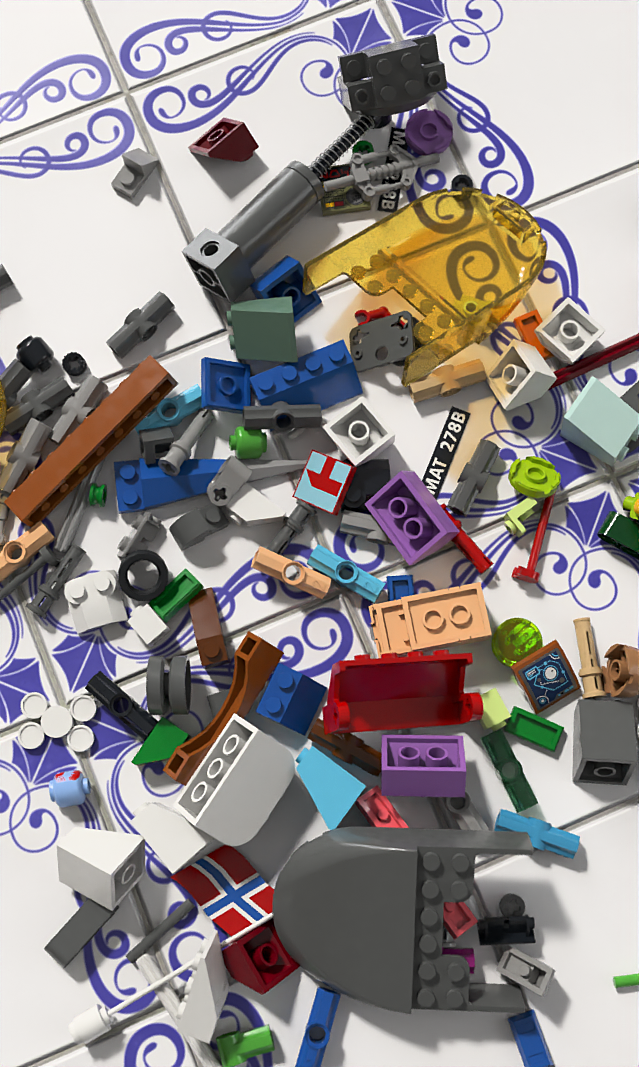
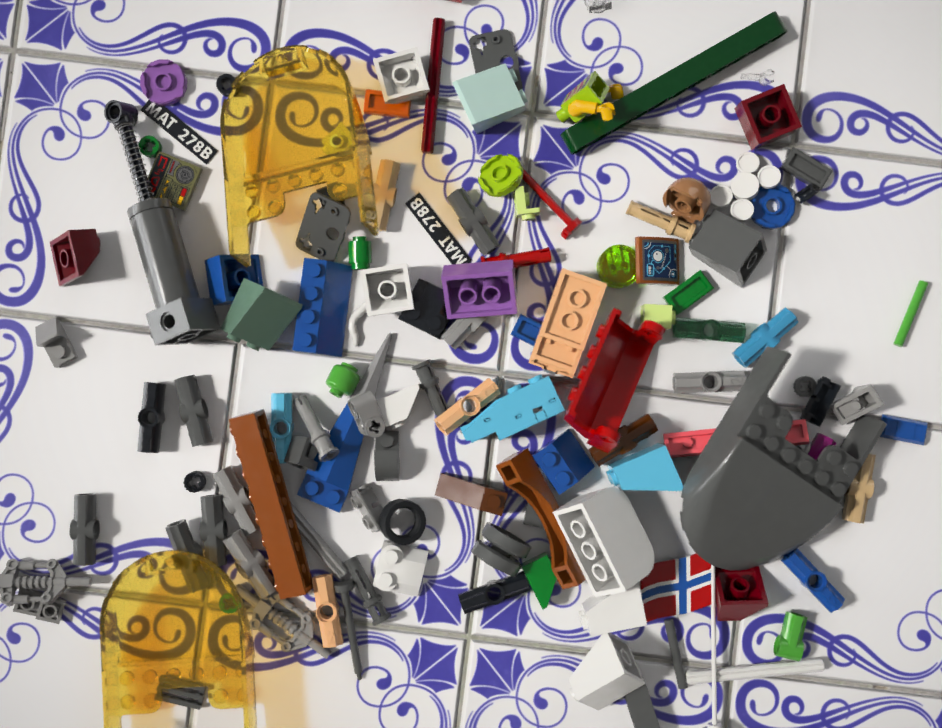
camera: 65 degrees left, 10 degrees up
(35, 354) = (169, 509): black head -> none
(57, 722) = (476, 648): white piece -> none
(69, 788) = (533, 666): light blue head -> none
(98, 297) = (150, 433): none -> black piece
(98, 495) = (316, 521): green bush -> none
(148, 624) = (442, 538): white brick -> none
(176, 595) = (432, 503): green tile -> none
(204, 992) = (743, 647): white slope -> none
(225, 385) = (286, 371): blue tile -> none
(266, 417) = (339, 342): dark grey piece -> none
(313, 620) = (516, 410): none -> medium azure piece
(324, 482) = (410, 339): tile -> none
(331, 565) = (504, 356): medium azure piece -> none
(362, 178) = (172, 162): light grey bar -> none
(376, 314) = (296, 211): red arm -> none
(379, 389) = (360, 253): none -> green brick
(395, 77) = (102, 81): dark grey piece -> none
(423, 766) = (672, 392): medium lavender slope -> none
(439, 1028) = (859, 492): none -> tan piece
(519, 375) = (414, 136): white slope -> none

